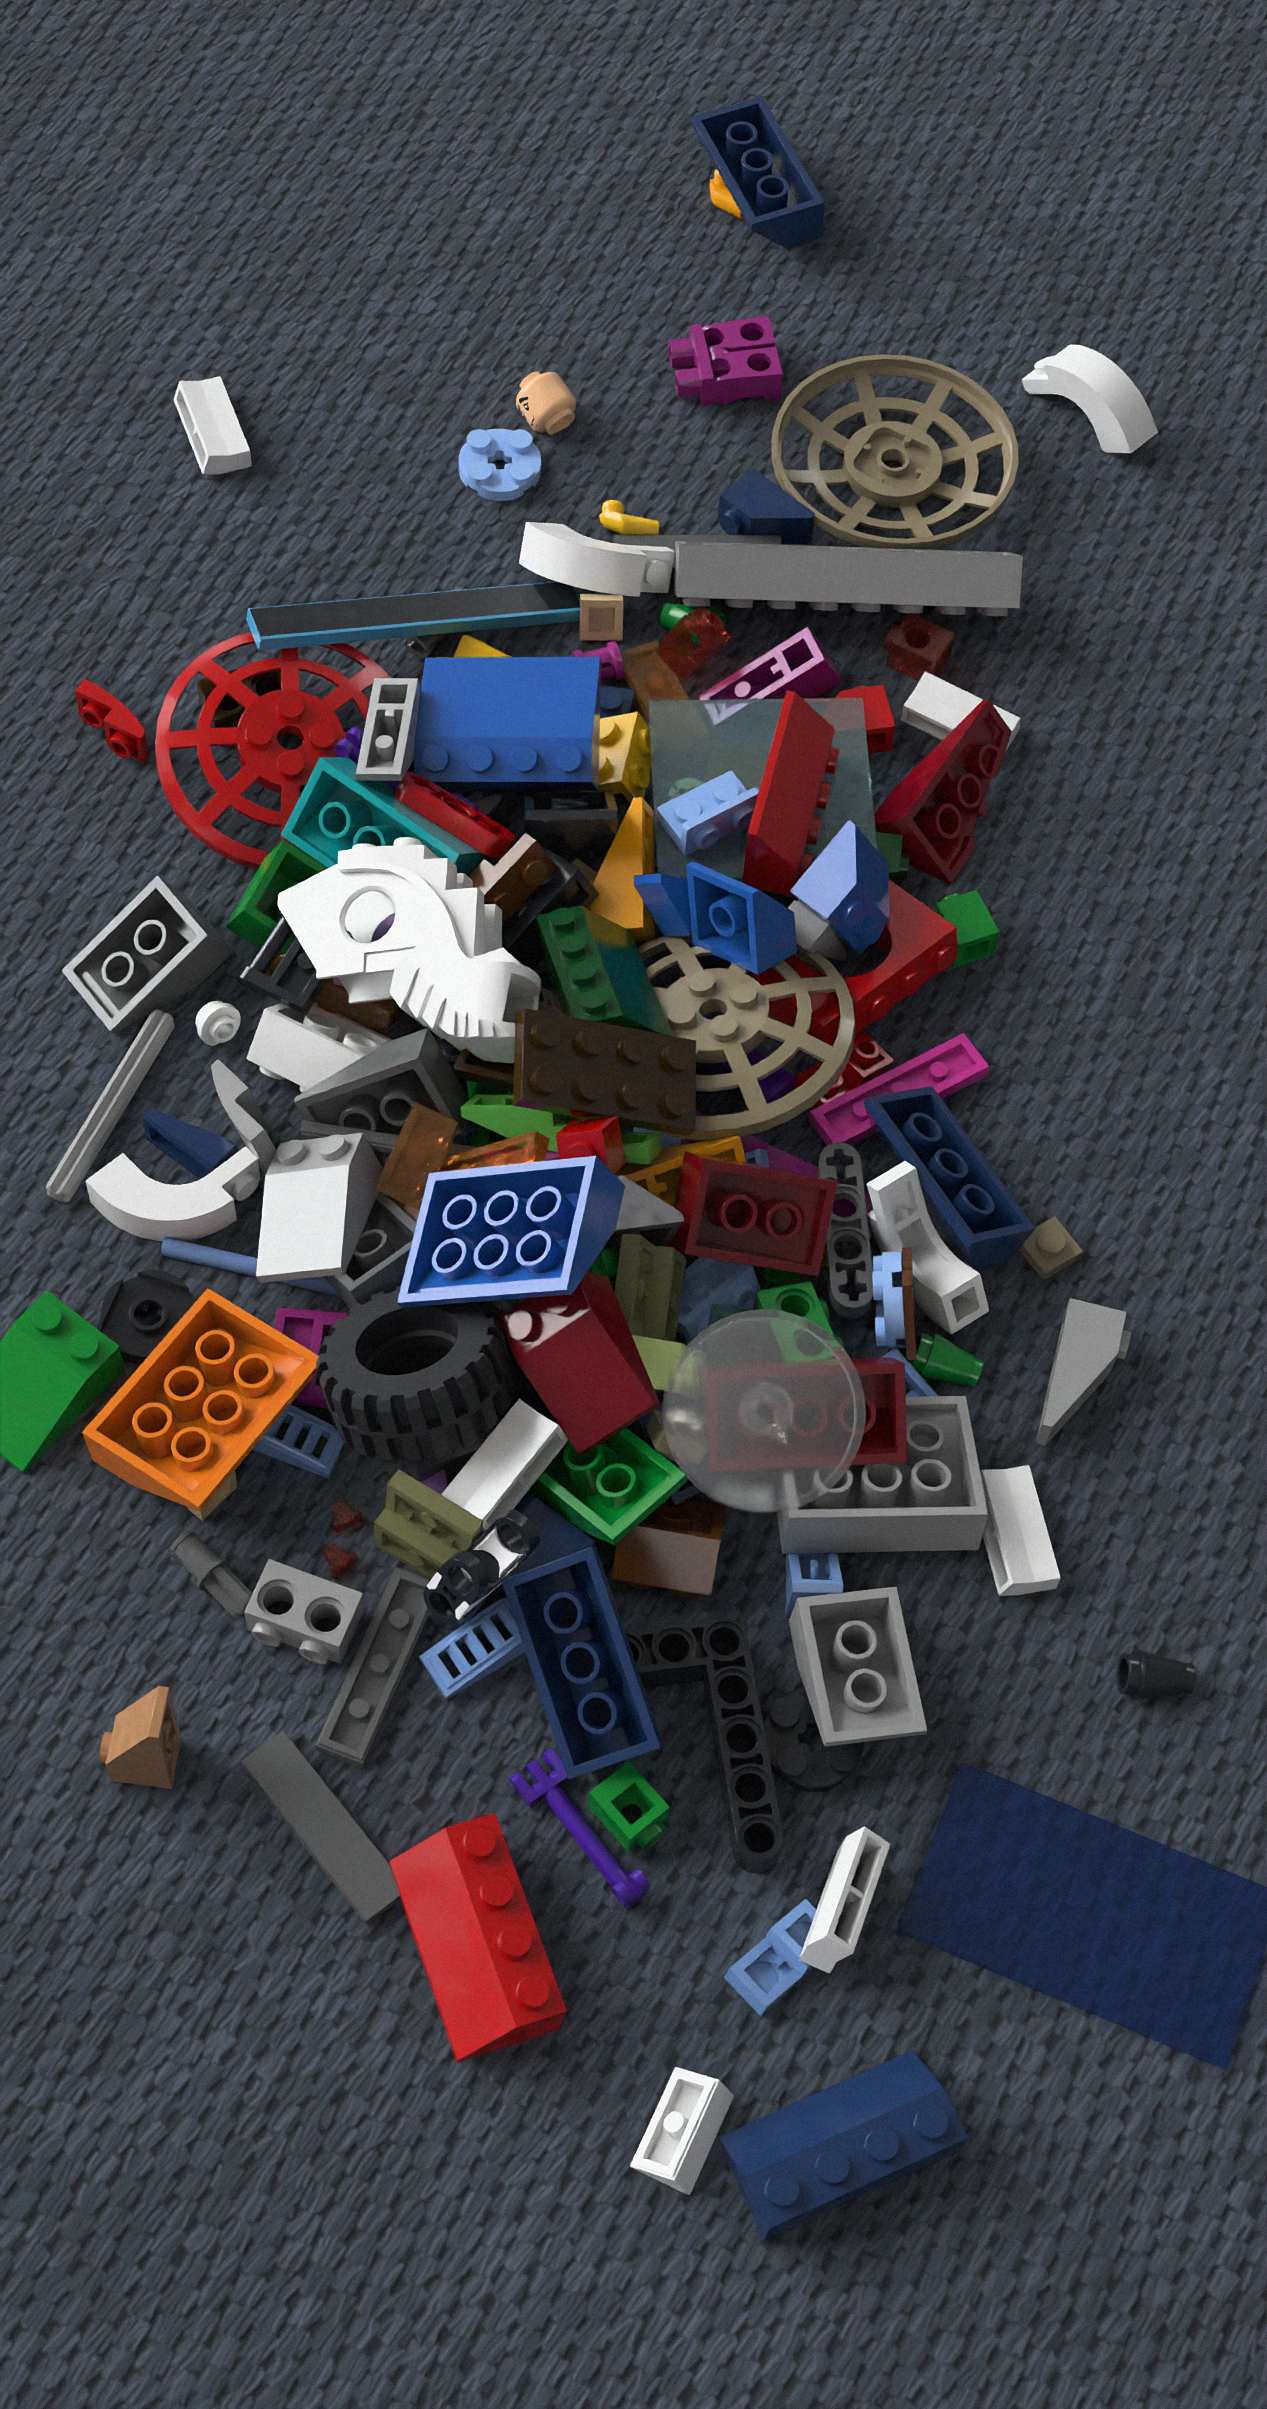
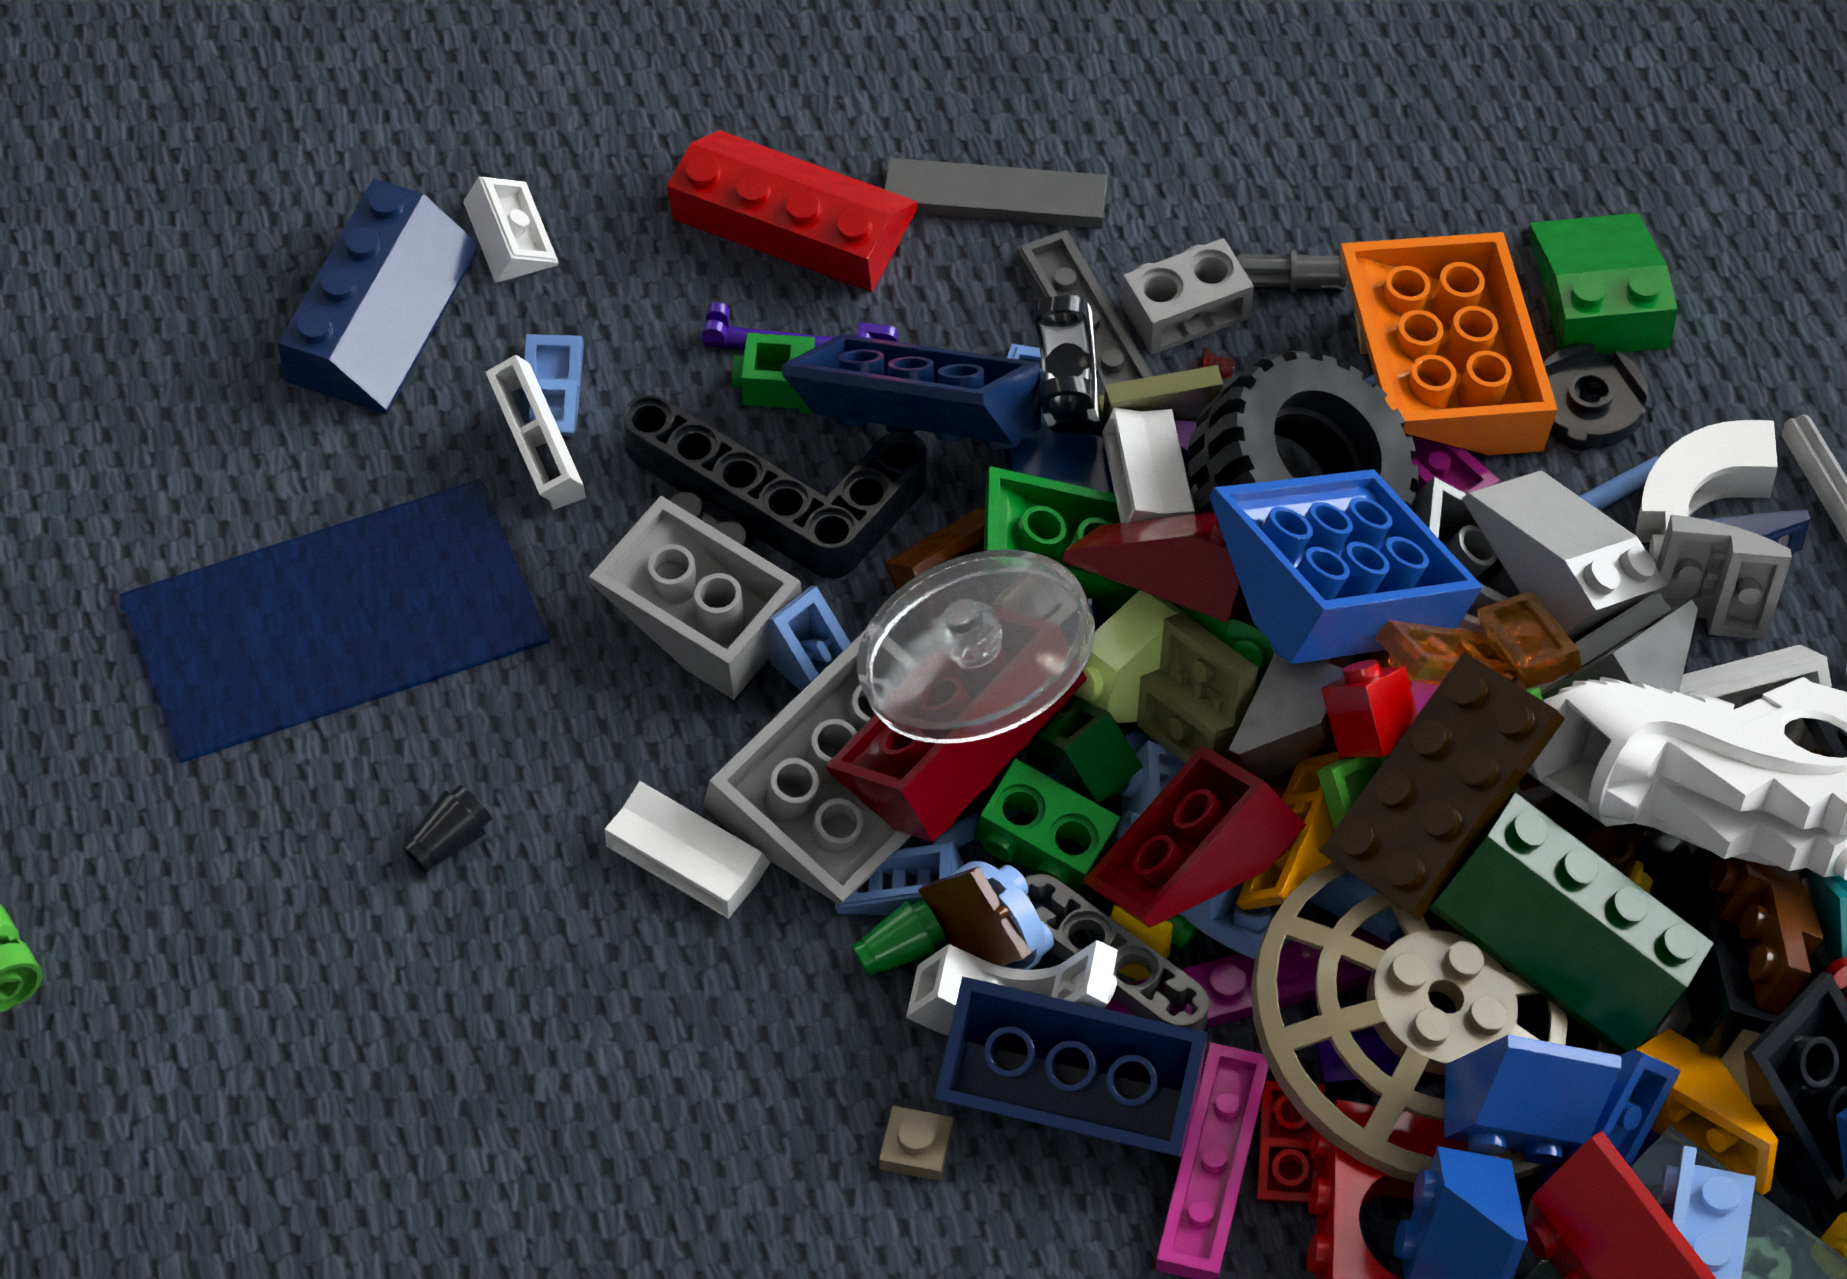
camera: 140 degrees right, 5 degrees down
(144, 1742) = (1176, 100): medium nougat slope -> none
(1083, 1358) = (781, 1055): light grey slope -> none

